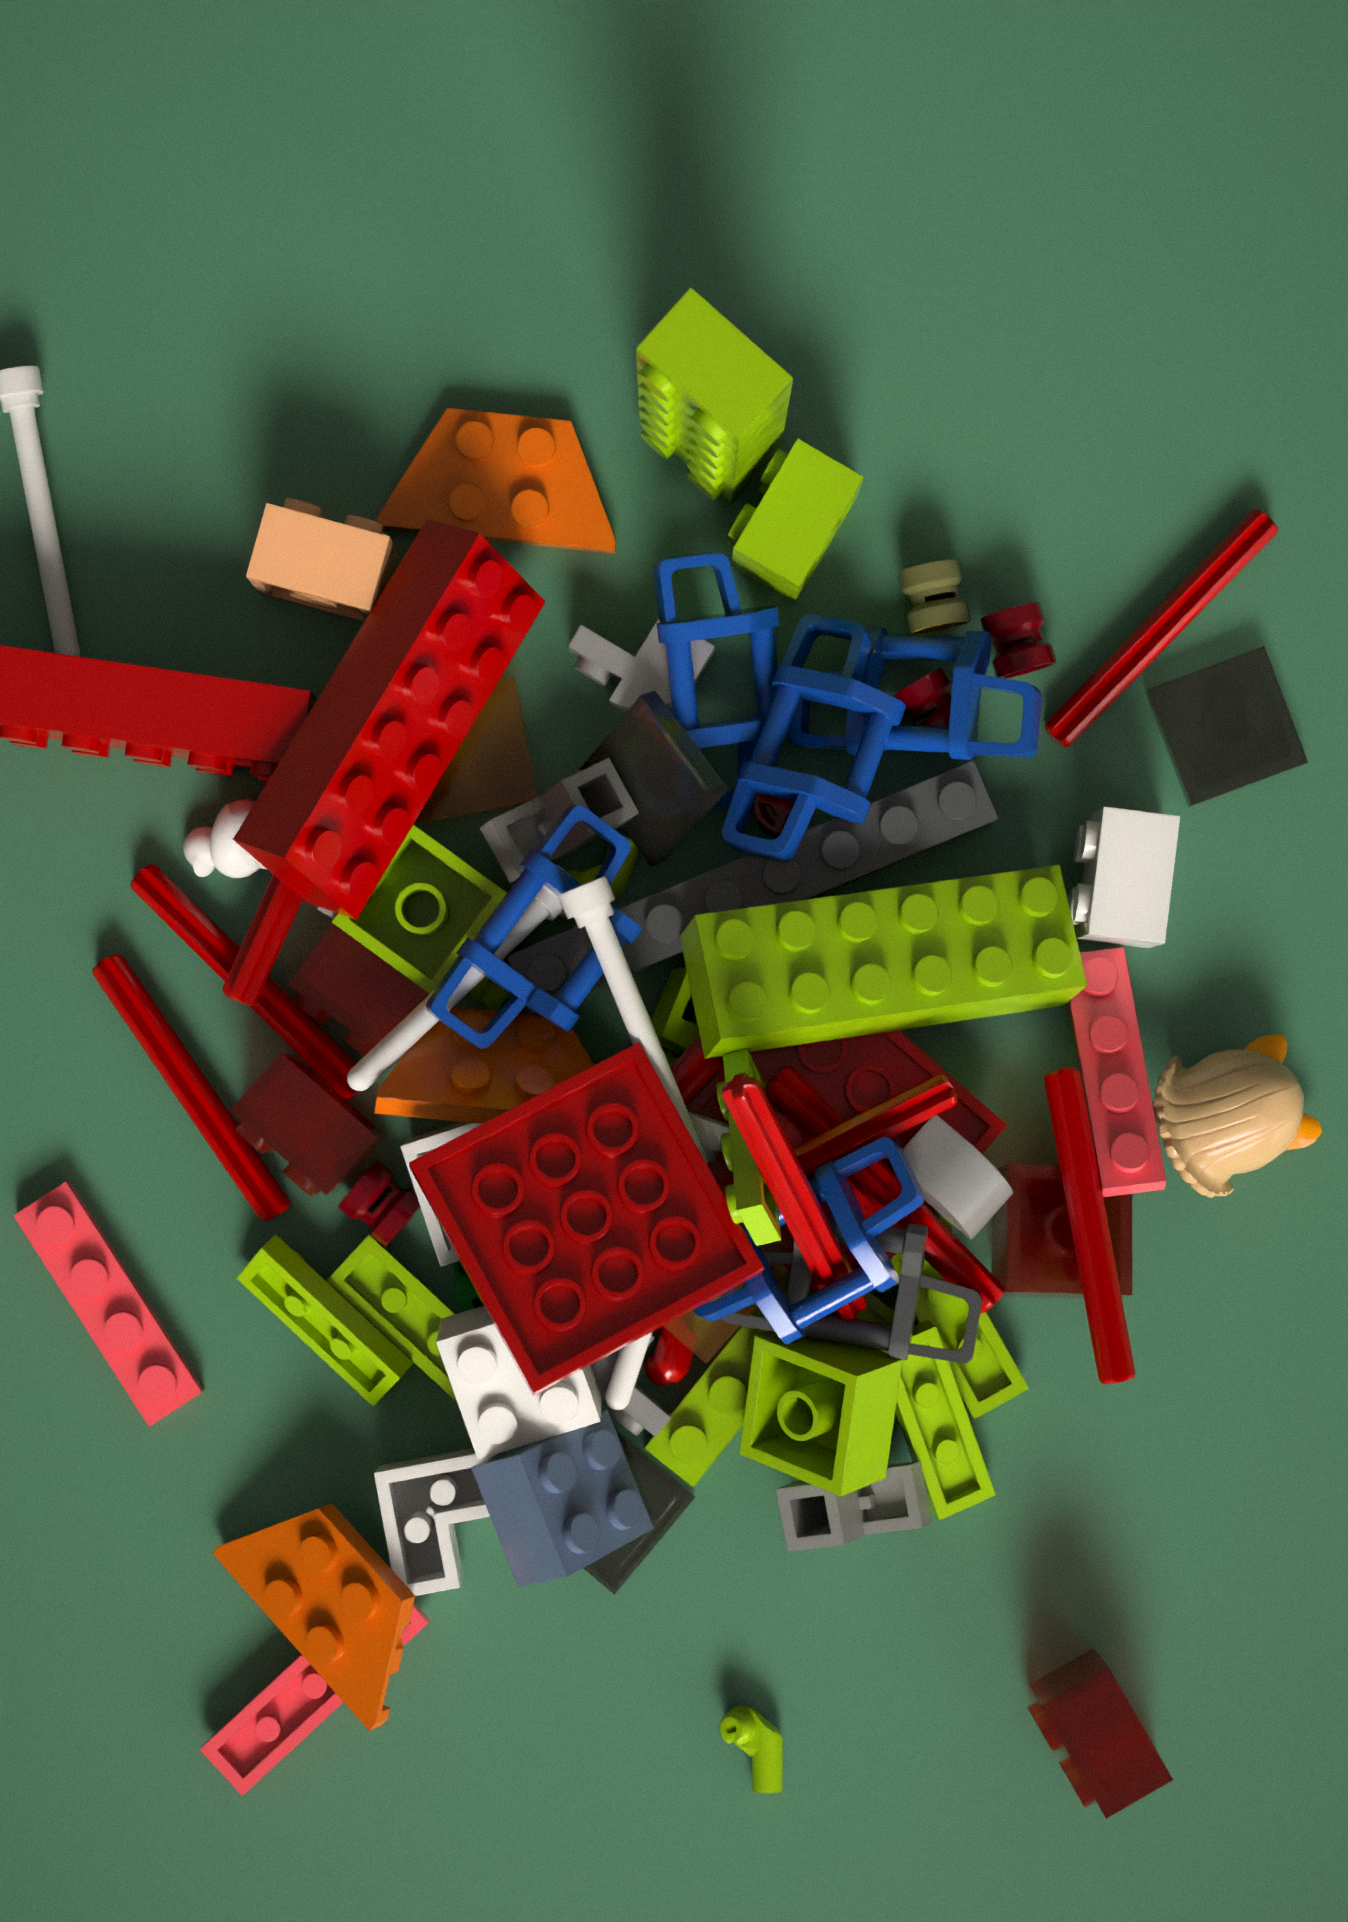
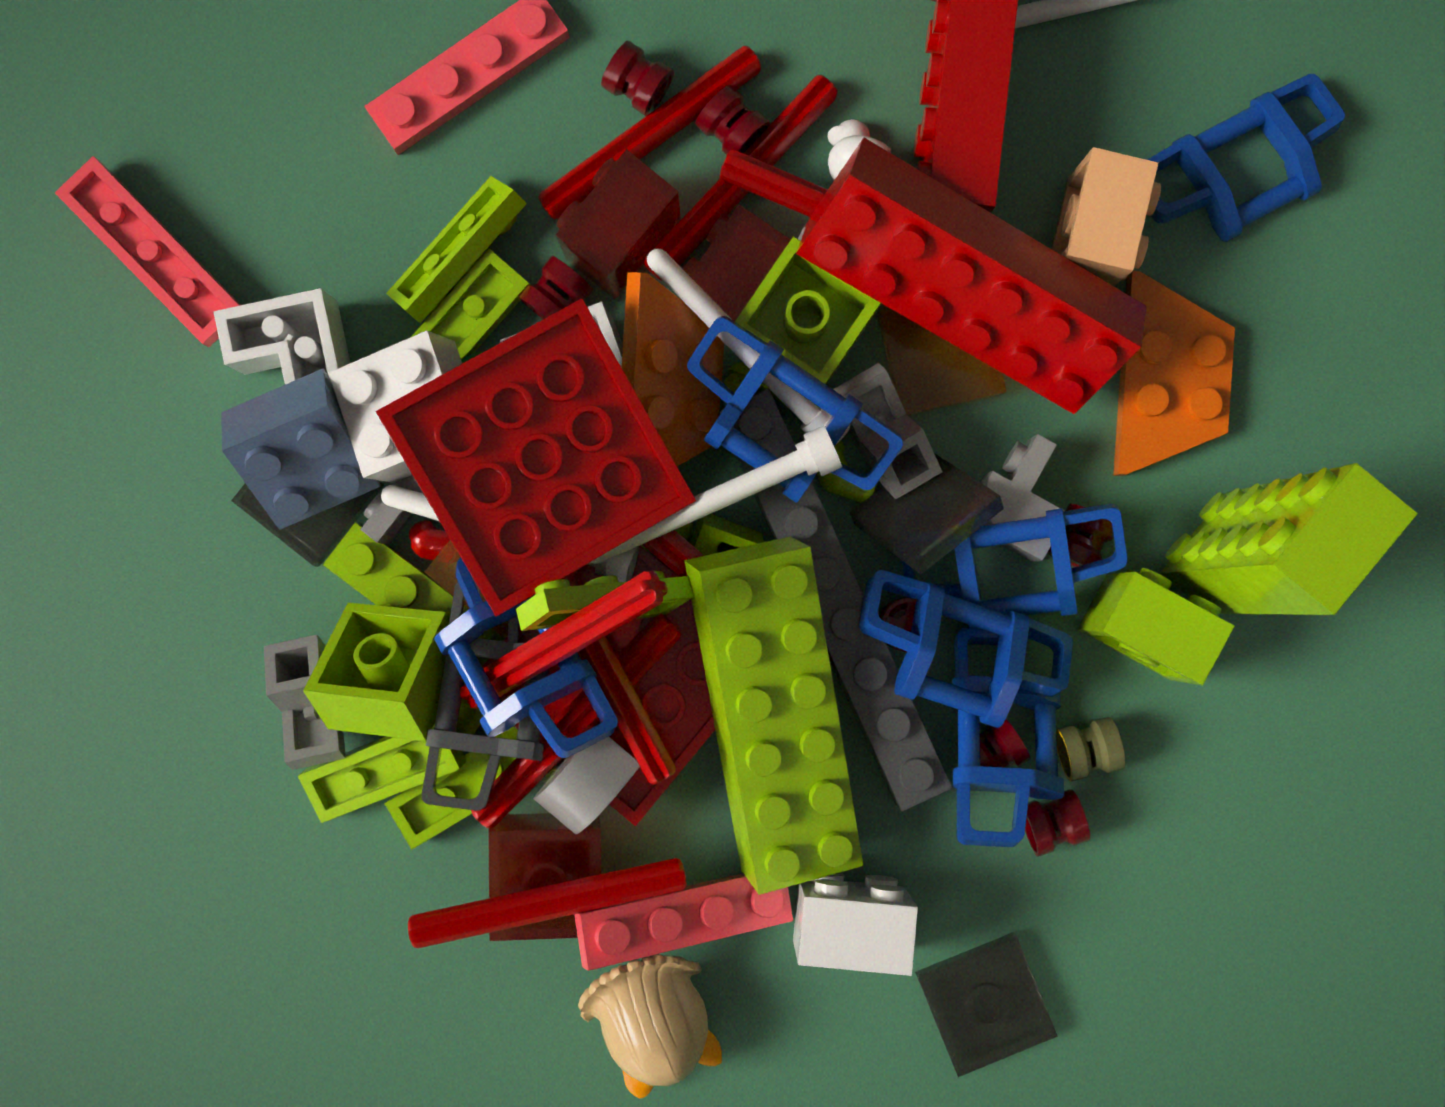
camera: 90 degrees right, 0 degrees up
(128, 1099) = (637, 78): none -> dark red wheel
(175, 998) = (731, 120): none -> dark red wheel
(239, 330) = (1284, 136): none -> blue bar
(329, 1601) = (213, 257): orange wing -> none
(702, 600) = (1086, 539): none -> dark red wheel
(760, 1741) = (111, 628): lime arm -> none
(1105, 1742) = (109, 918): clear red brick -> none
(1161, 628) = (1070, 946): red axle -> none

